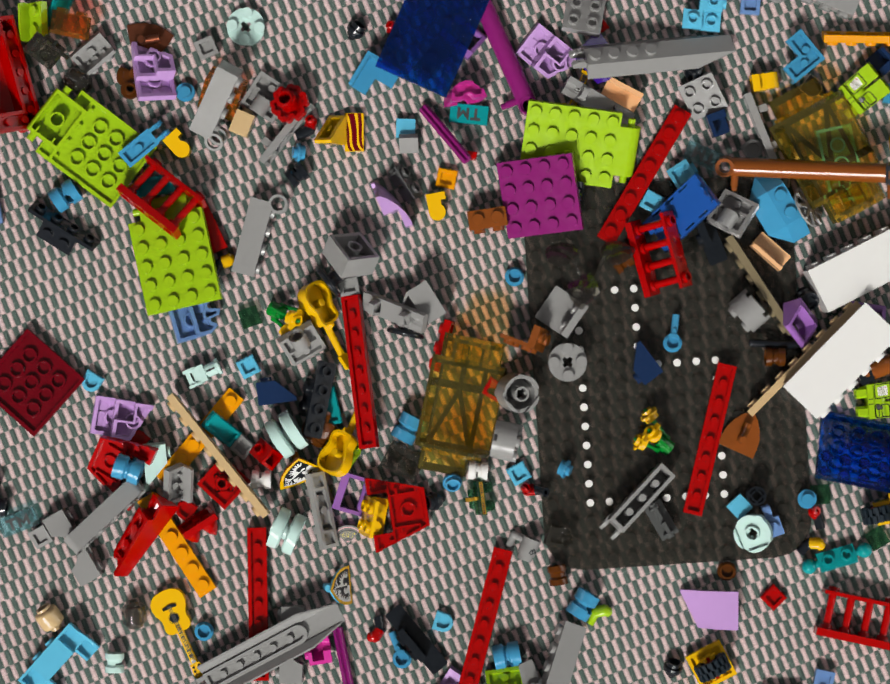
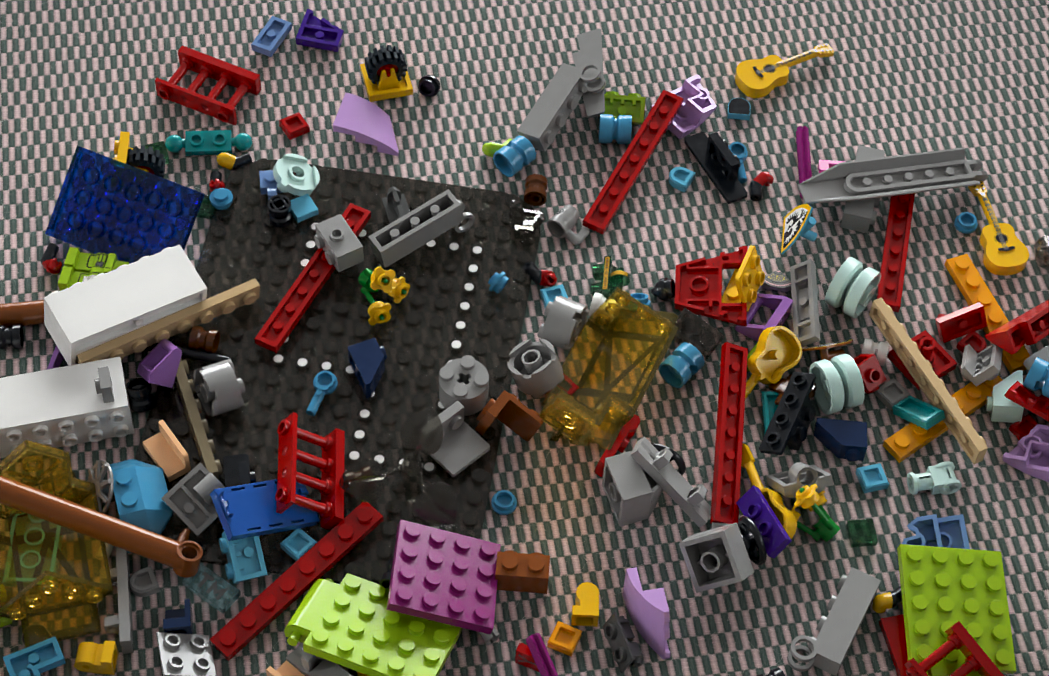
camera: 170 degrees left, 35 degrees down
(322, 296) = (757, 508): none -> dark purple plate
(697, 466) = (339, 243): none -> light grey brick
(726, 570) = (338, 157): reddish brown plate -> none
(742, 435) = (274, 275): dark orange shield -> none
(829, 278) = (104, 384): none -> light grey plate

